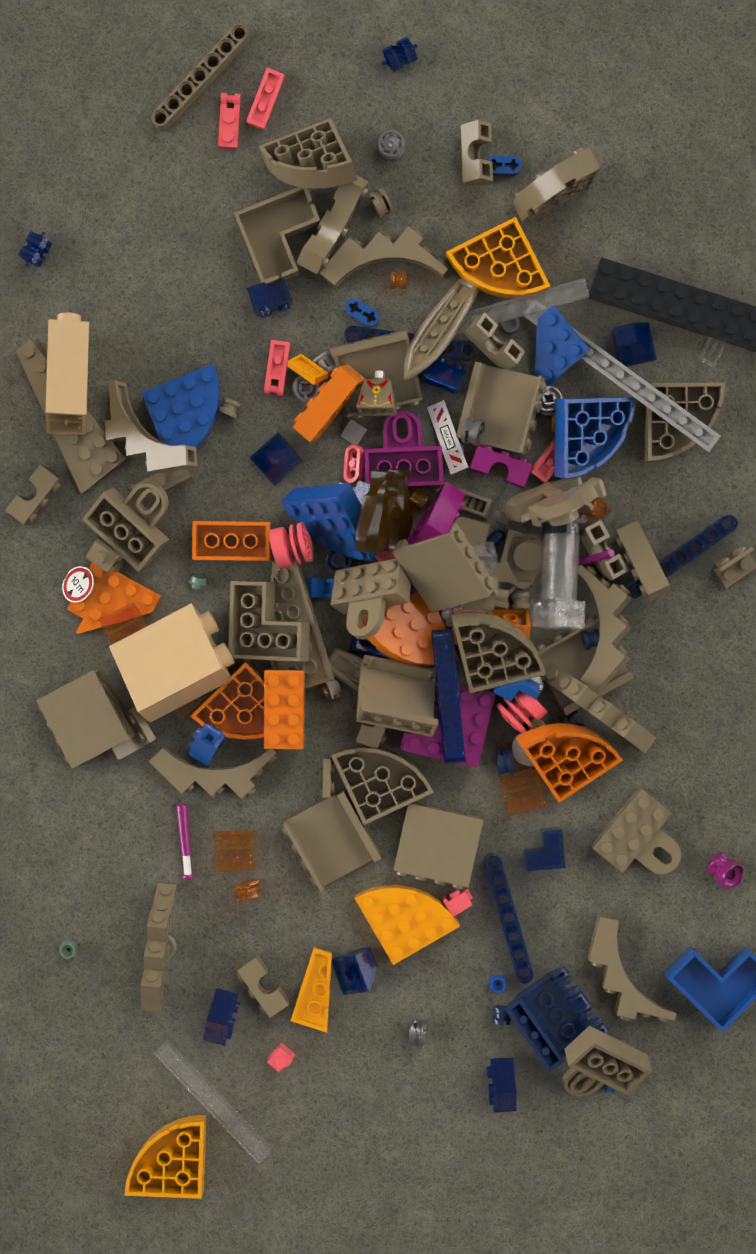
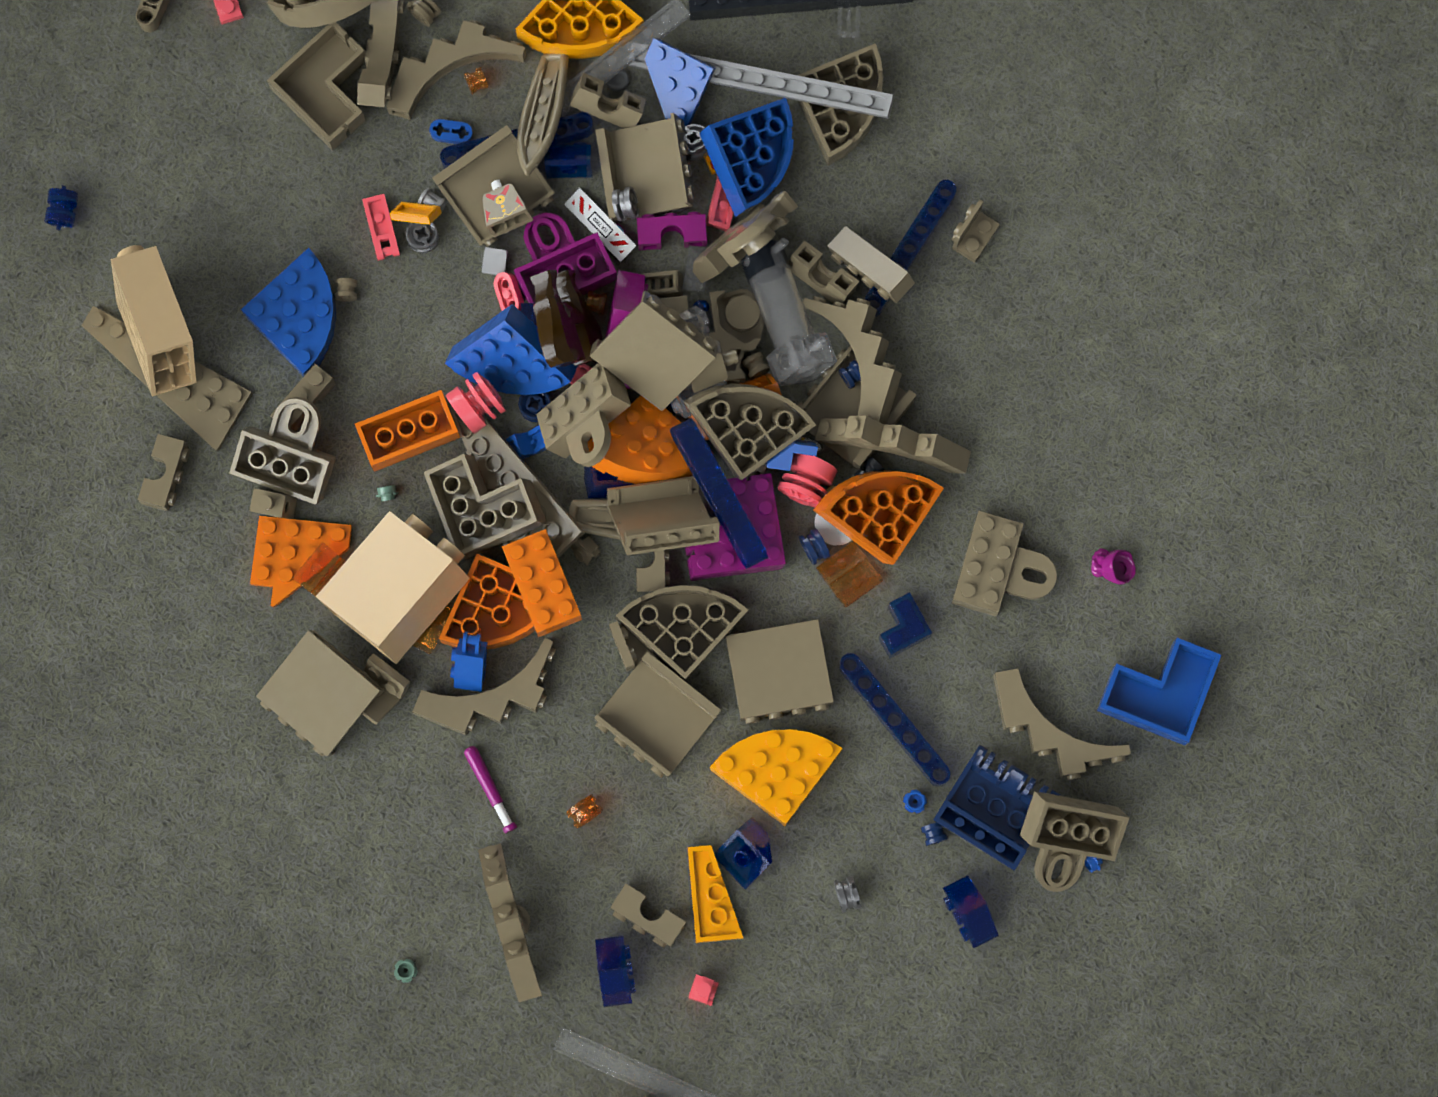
camera: 25 degrees left, 10 degrees down
(78, 584) = (252, 550): sticker -> none
(139, 443) = (289, 365): dark tan arch -> none
(235, 851) = (552, 776): clear orange slope -> none
(269, 298) = (342, 156): clear blue brick -> none
(276, 459) = (421, 324): clear blue slope -> none
(328, 402) = (453, 236): orange brick -> none
(458, 901) = (829, 724): coral brick -> none
(596, 557) = (818, 281): magenta piece -> none
(600, 507) = (796, 229): clear orange wheel -> none
(633, 343) = (760, 45): clear blue slope -> none

